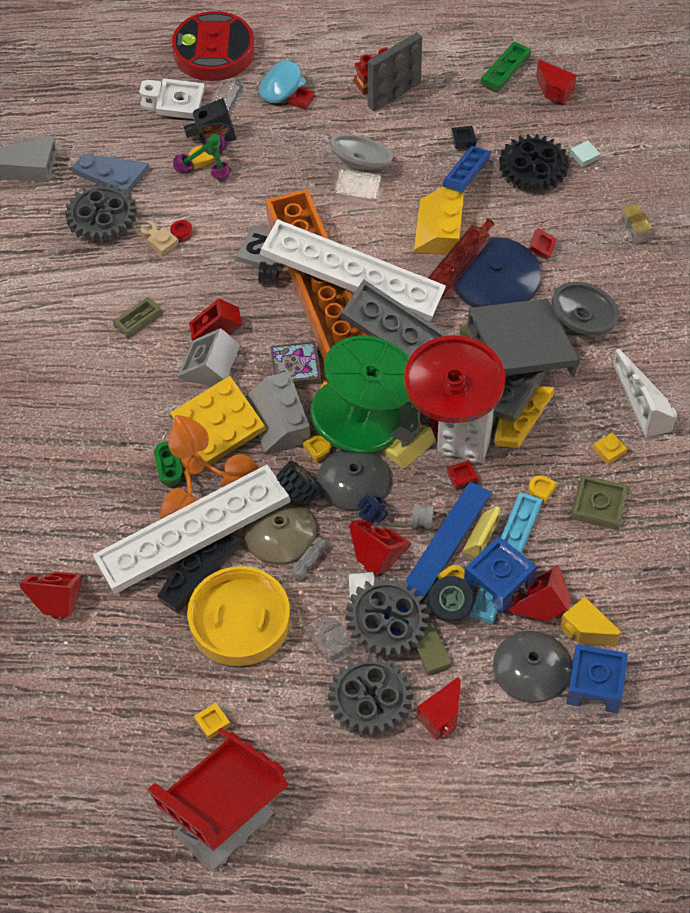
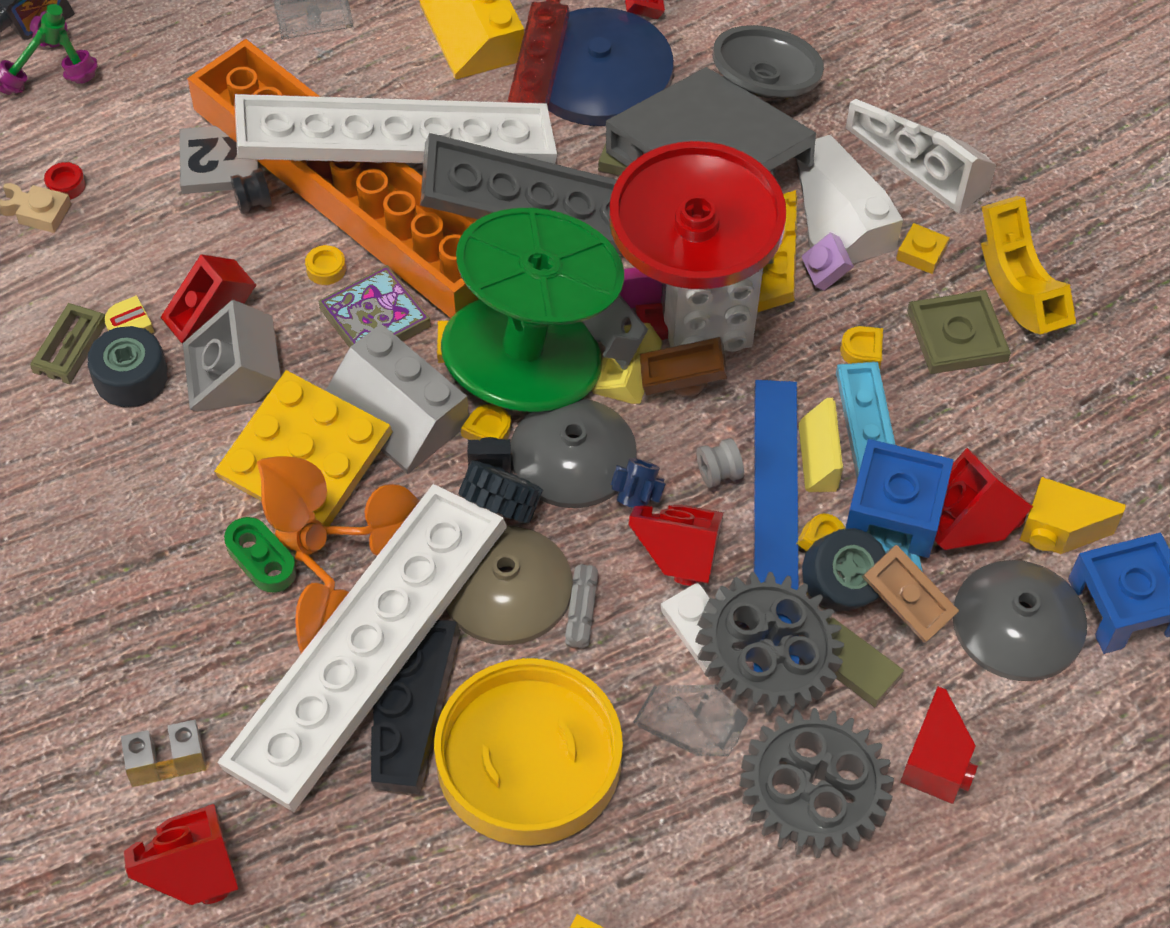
camera: 30 degrees left, 0 degrees up
(60, 539) = (141, 758): none -> piece
(157, 341) = (127, 366): none -> black wheel
(172, 317) = (128, 313): none -> light yellow tile
(202, 160) = (39, 62): yellow tile -> none
(285, 328) = (325, 265): none -> yellow tile
(308, 461) = (491, 451): none -> black plate
(432, 458) = (683, 367): none -> reddish brown tile
(462, 474) = (740, 376): red tile -> none
(474, 624) = (910, 593): none -> medium nougat panel
(549, 433) = (827, 261): none -> lavender plate
(578, 408) = (847, 203): none -> white wedge
(652, 481) = (1017, 274): none -> yellow arch

